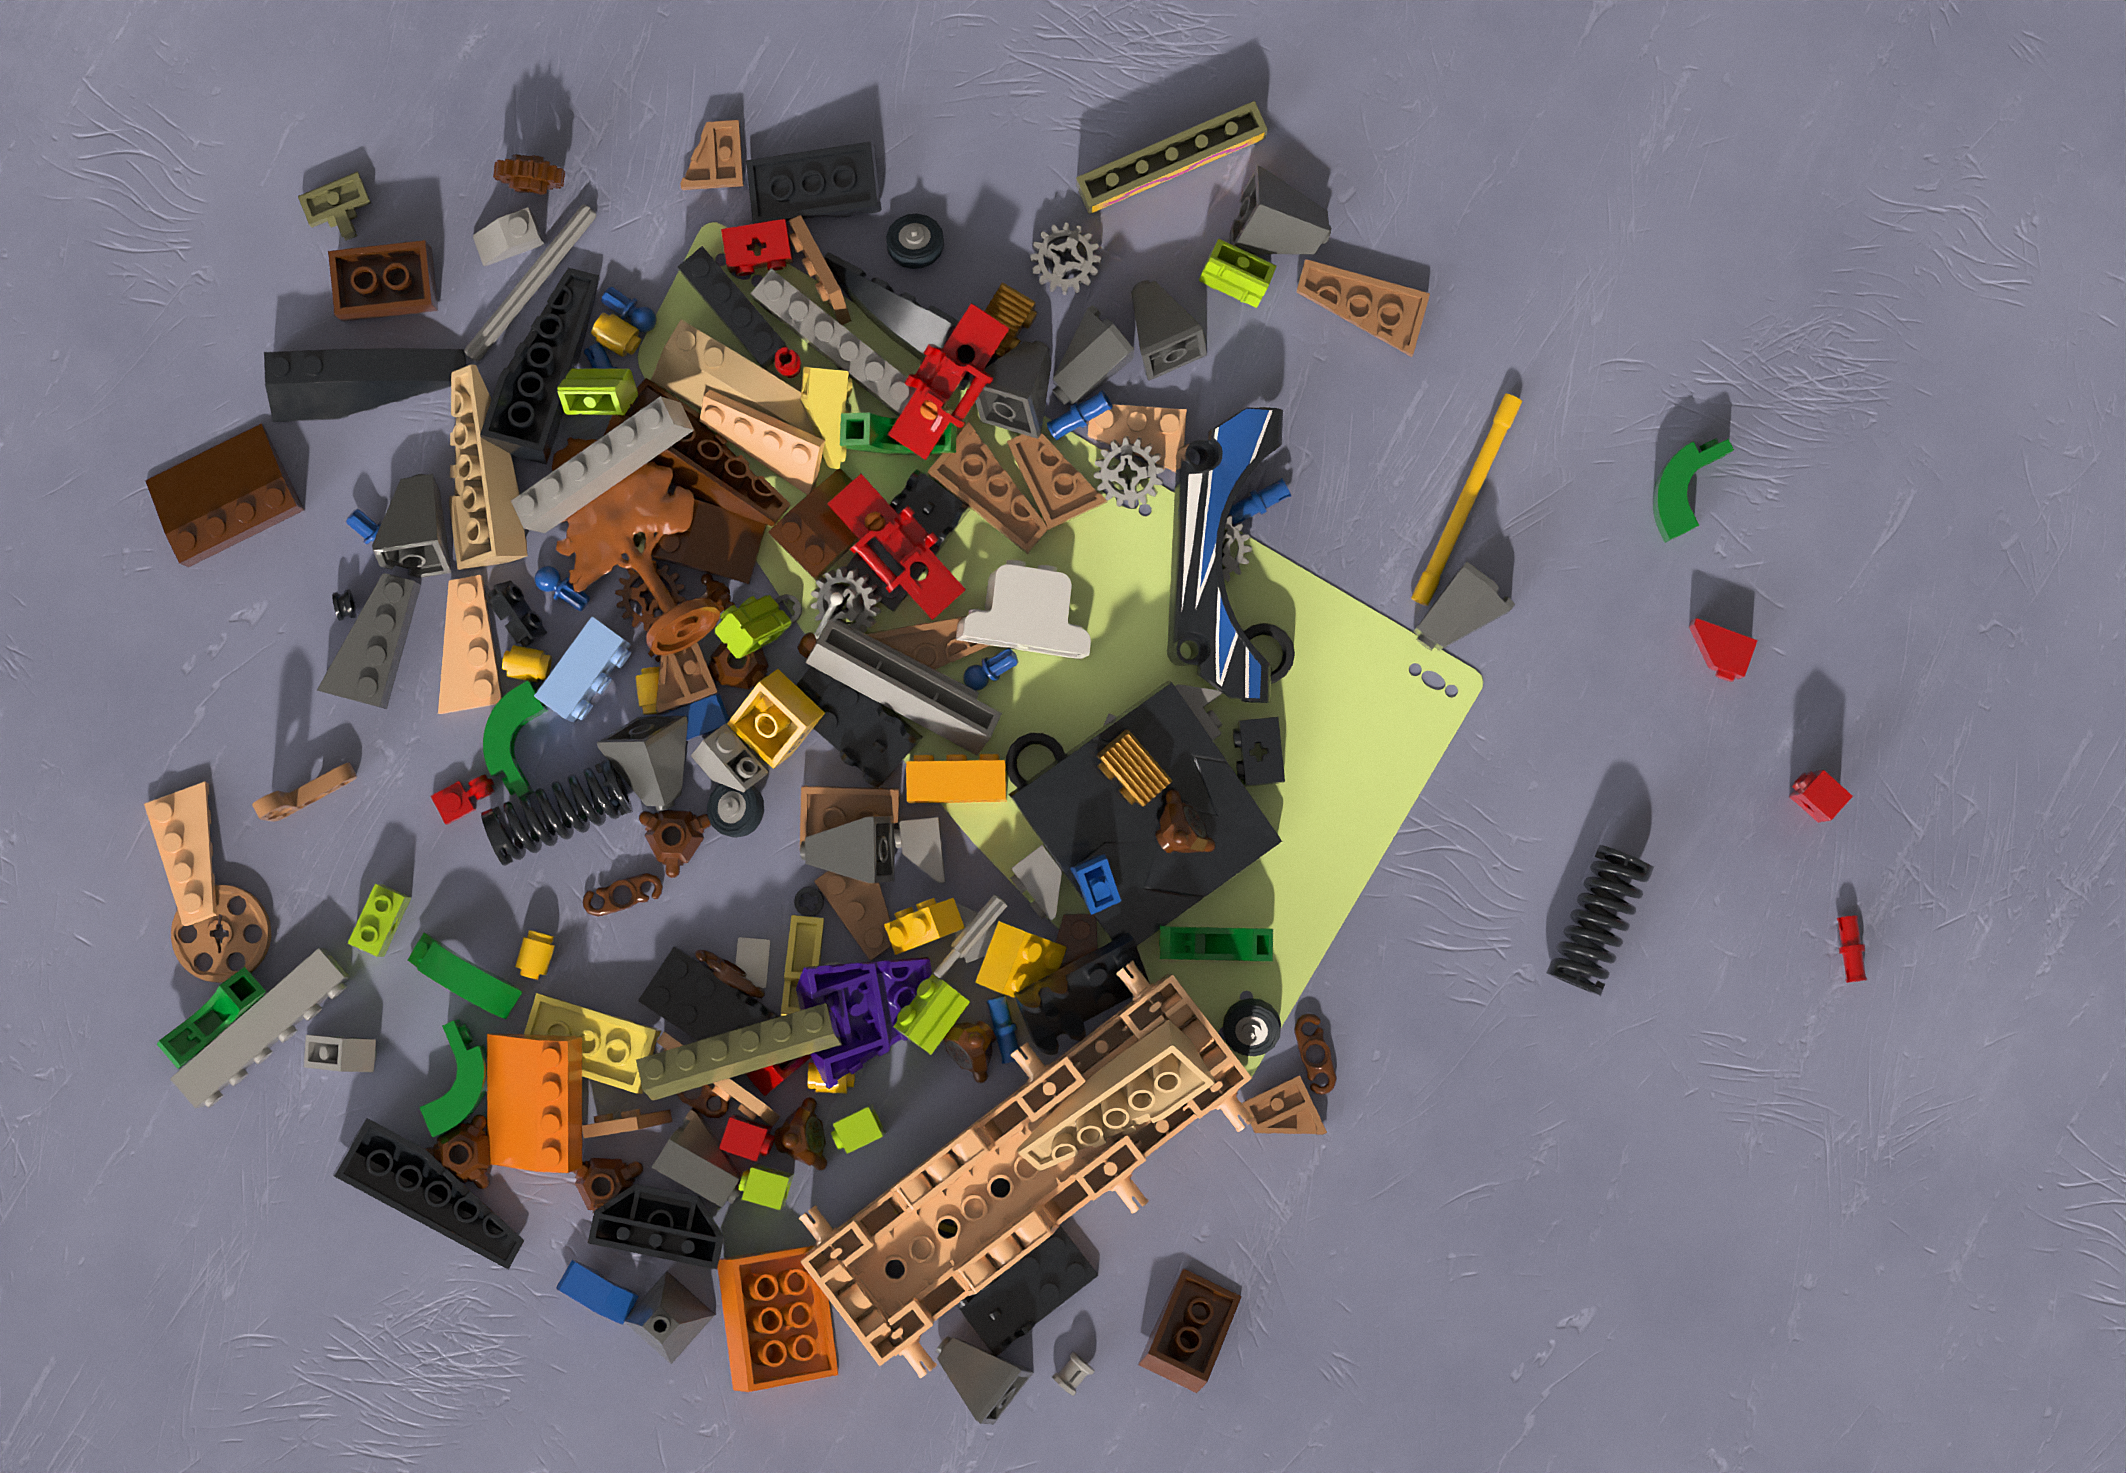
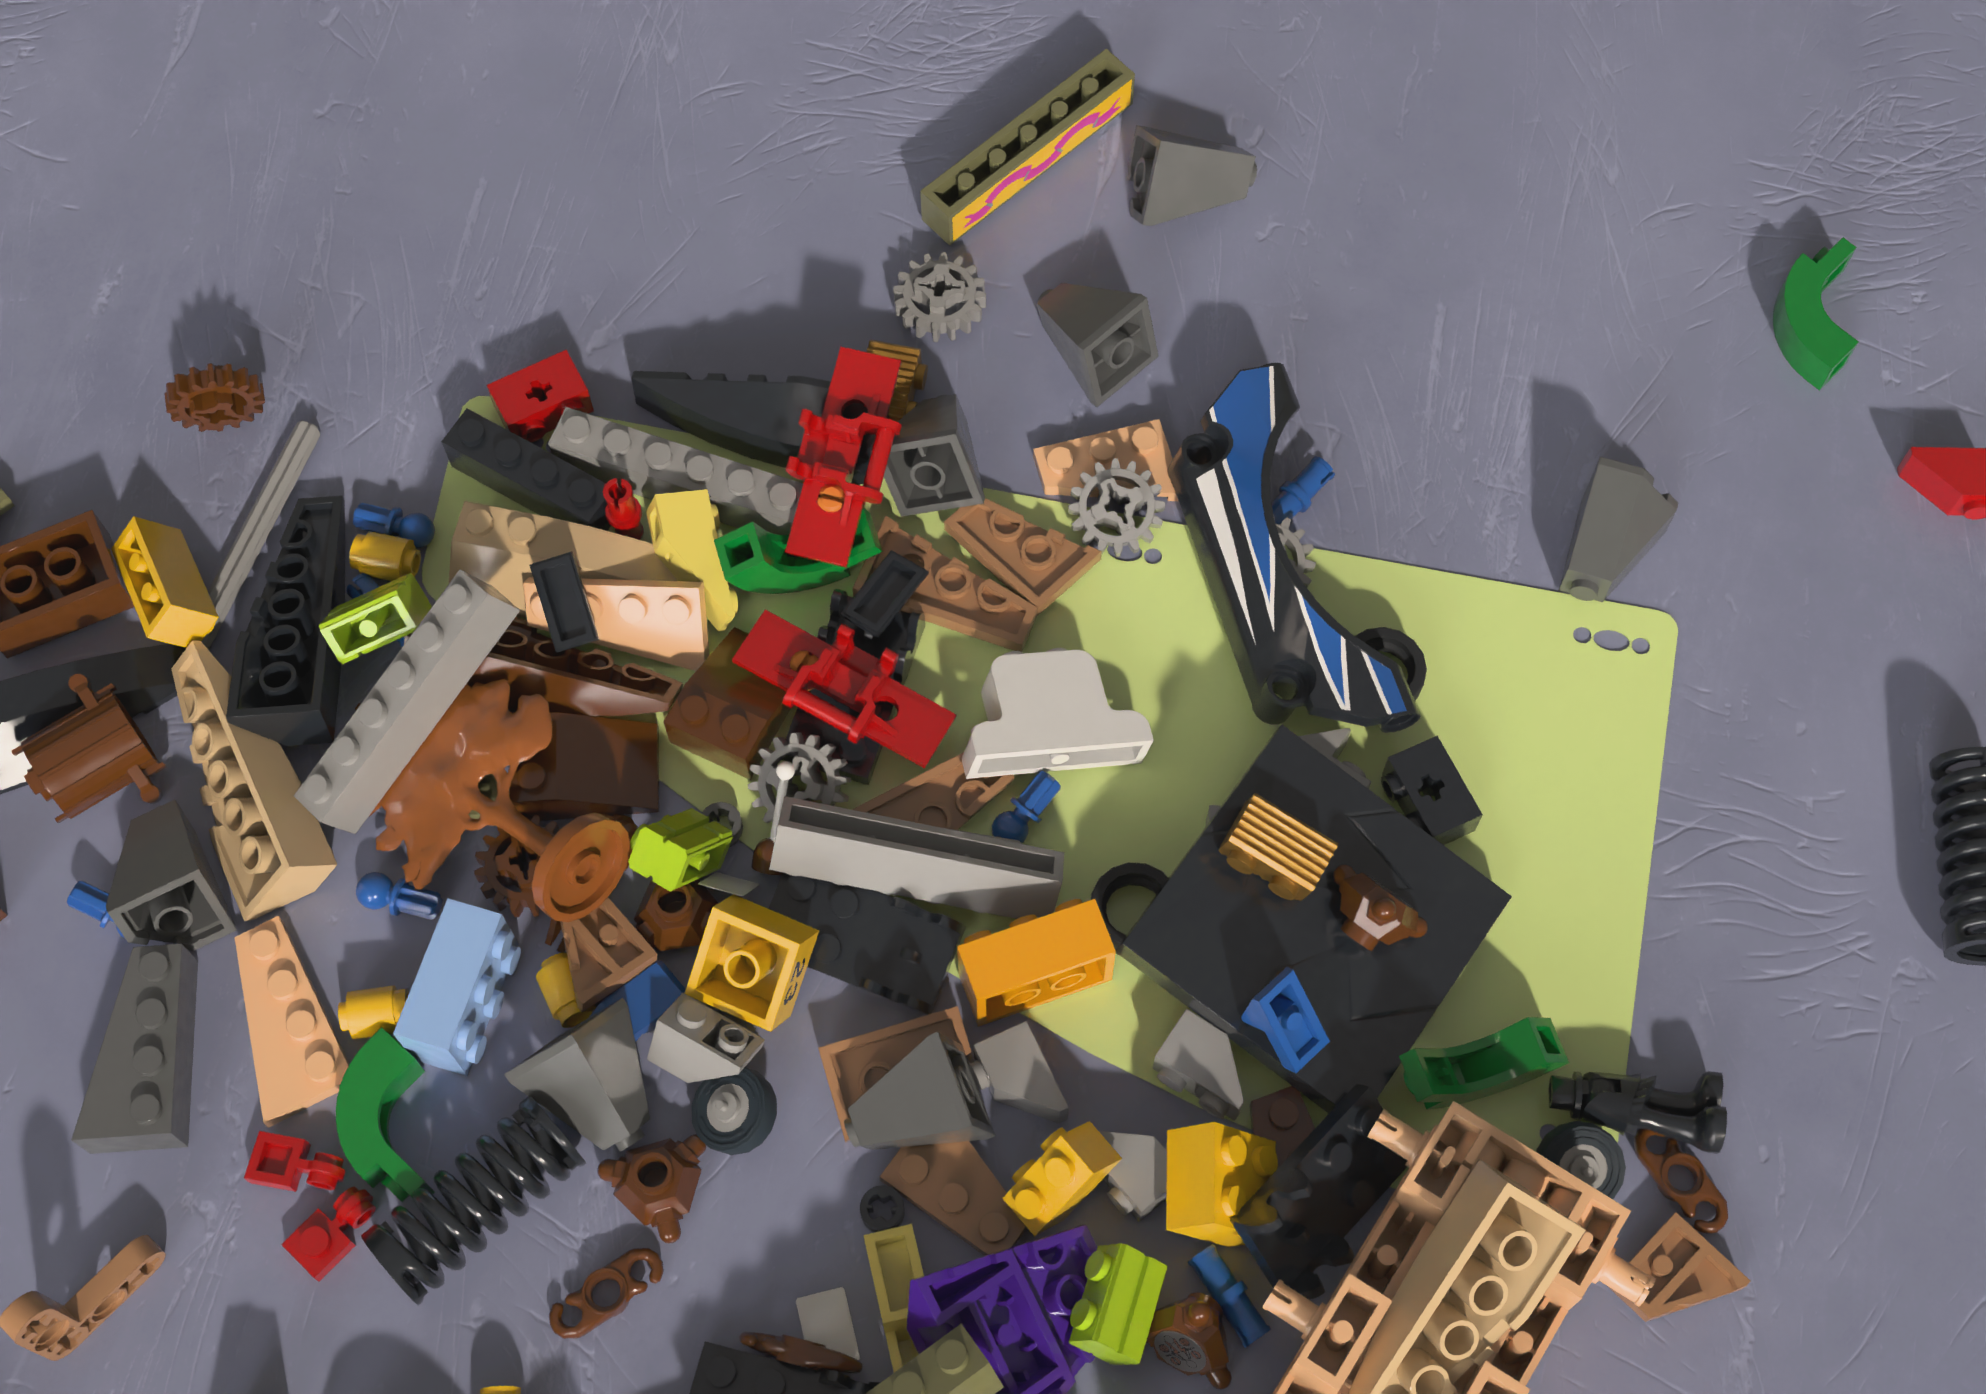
camera: 20 degrees left, 20 degrees down
(344, 604) = (89, 1017): black bush -> none
(385, 422) = (90, 753): none -> reddish brown container
(443, 744) = (281, 1160): none -> red plate
(461, 311) = (164, 583): none -> yellow brick
(508, 237) = (208, 486): light grey slope -> none
(509, 600) = (357, 957): black hinge -> none
(716, 158) = (457, 320): medium nougat wing -> none
(726, 424) = (564, 602): none -> black tile
(778, 656) = (729, 884): none -> white sticker
(814, 183) = (595, 303): black hinge -> none
(817, 266) = (629, 393): medium nougat wing -> none
(915, 241) = (742, 332): black wheel -> none
(946, 486) = (884, 593): none -> black tile
(972, 933) = (1135, 1162): light grey axle -> none
(1079, 415) = (1026, 463): blue pin -> none
(1091, 358) = (1019, 390): dark grey slope -> none
(1237, 273) = (1160, 245): lime brick -> none
(1296, 995) = (1635, 1103): none -> black piece
(1374, 305) = (1337, 235): medium nougat wing -> none
(1501, 423) = (1552, 515): yellow piece -> none

